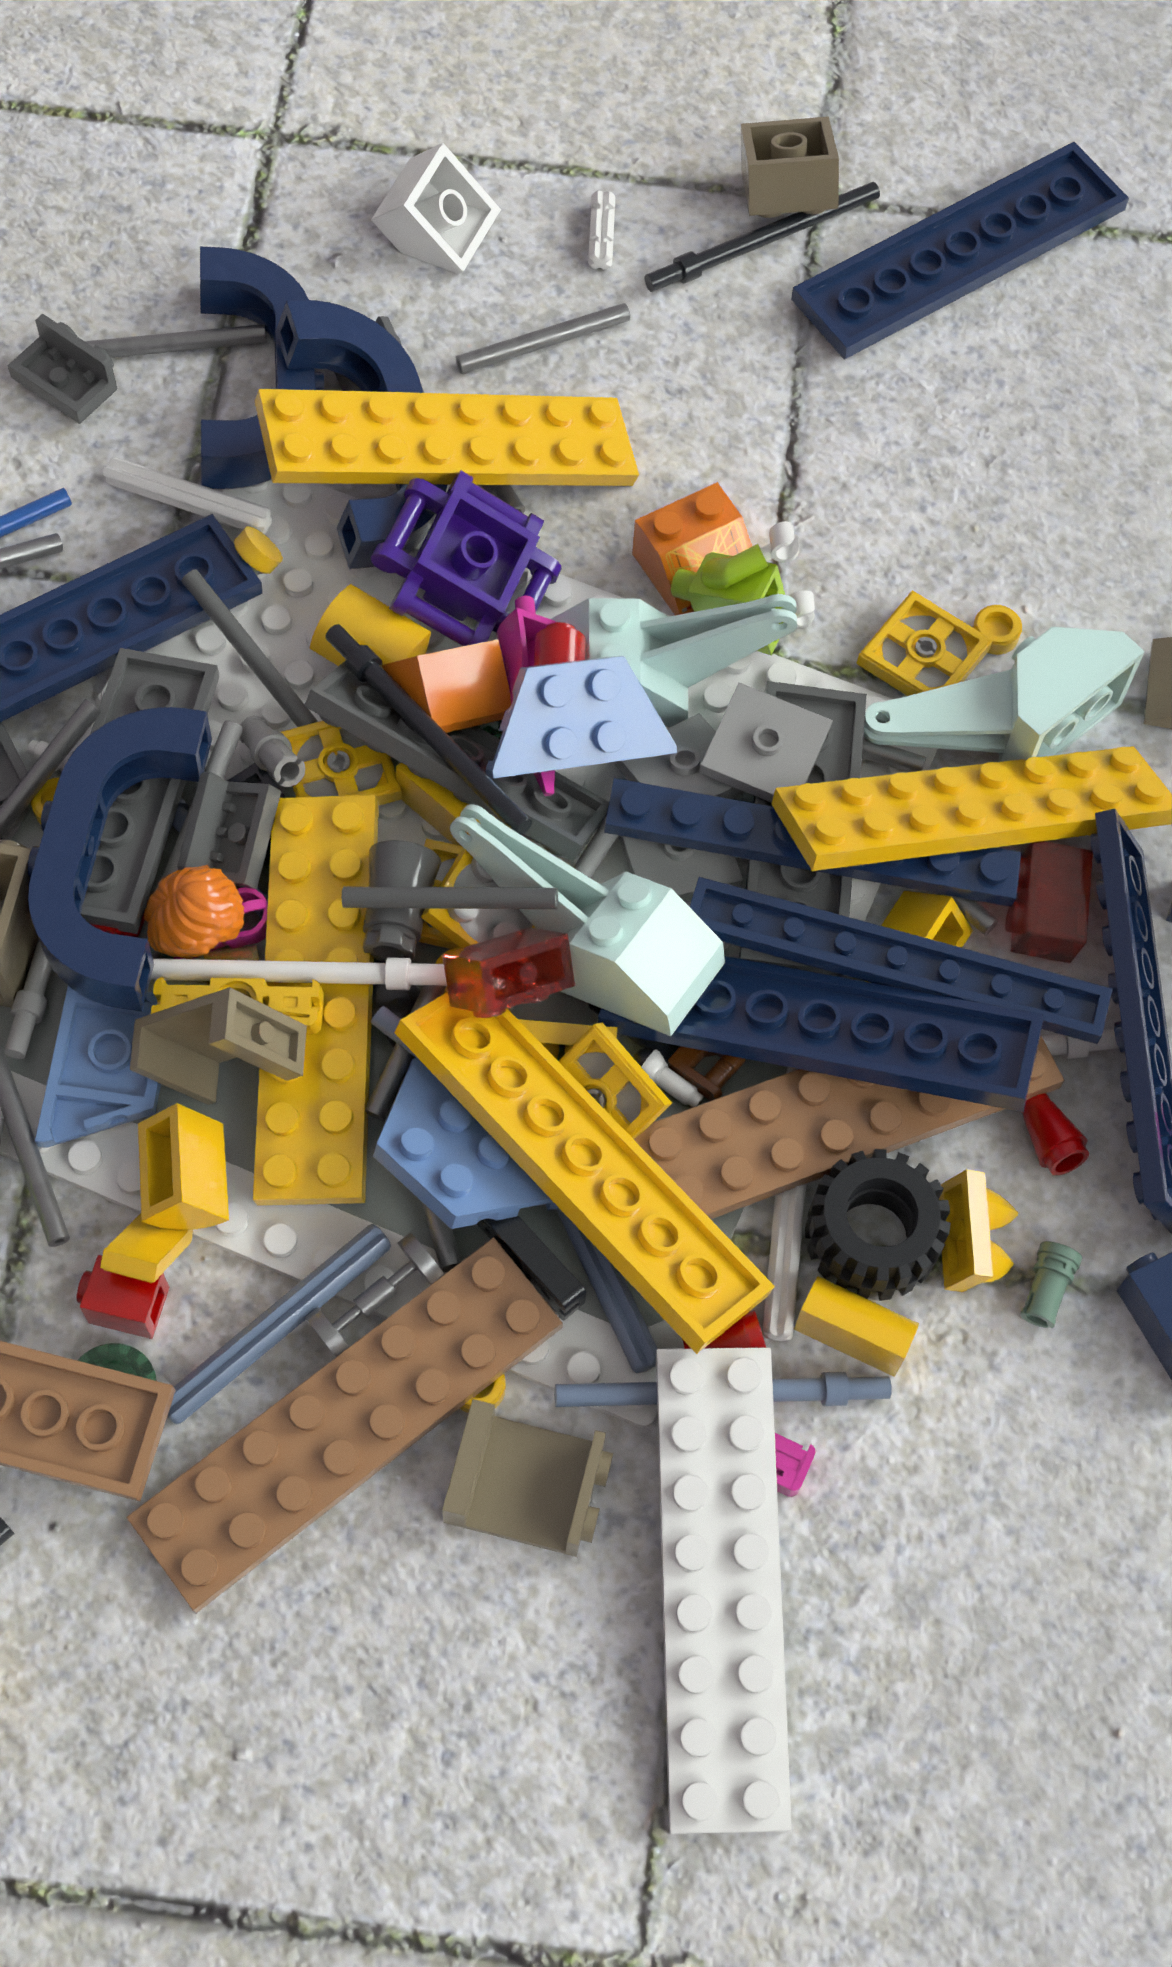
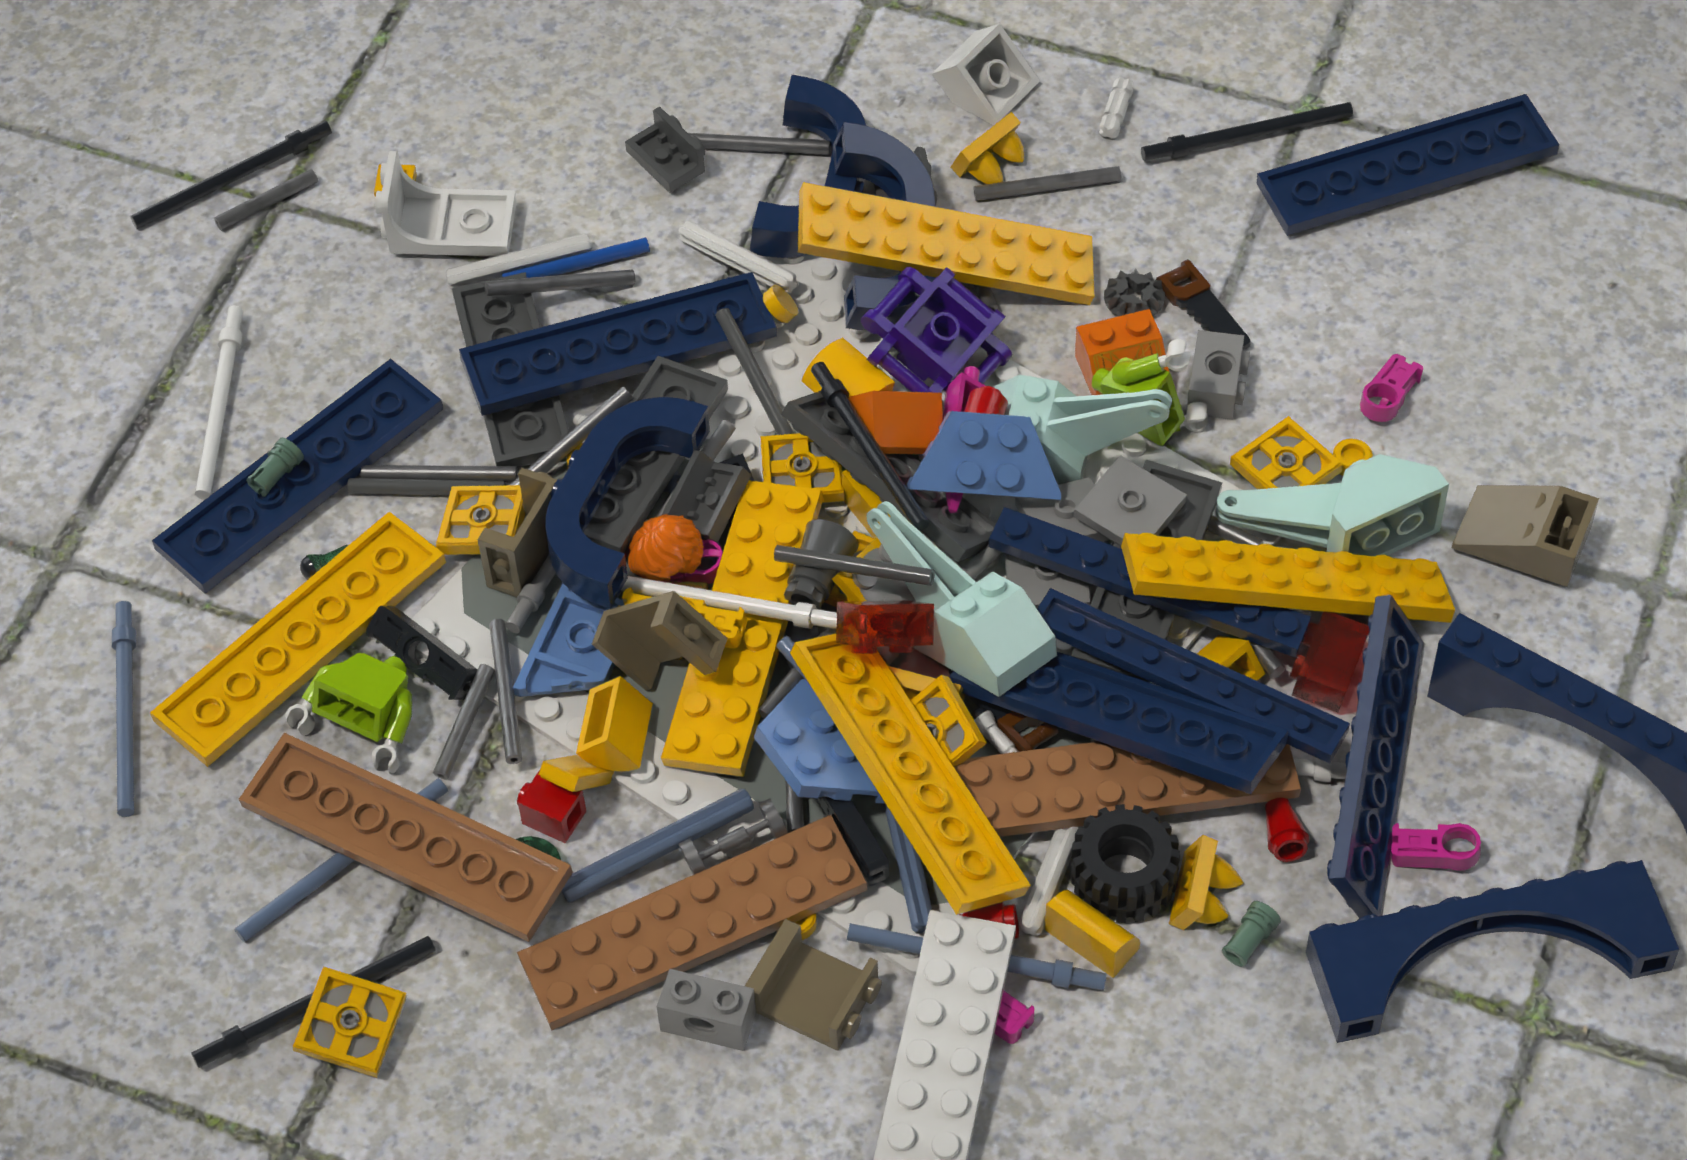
camera: 20 degrees right, 10 degrees down
(272, 751) = (752, 447): light grey pin -> none
(397, 1546) = (706, 1009): none -> light grey brick
(453, 318) = (978, 156): none -> yellow tile
(683, 479) = (1121, 303): none -> dark grey gear
(770, 464) = (1199, 300): none -> piece
(789, 166) = (1277, 80): dark tan brick -> none
(820, 530) = (1216, 373): none -> light grey brick
(1019, 530) = (1392, 385): none -> dark pink piece

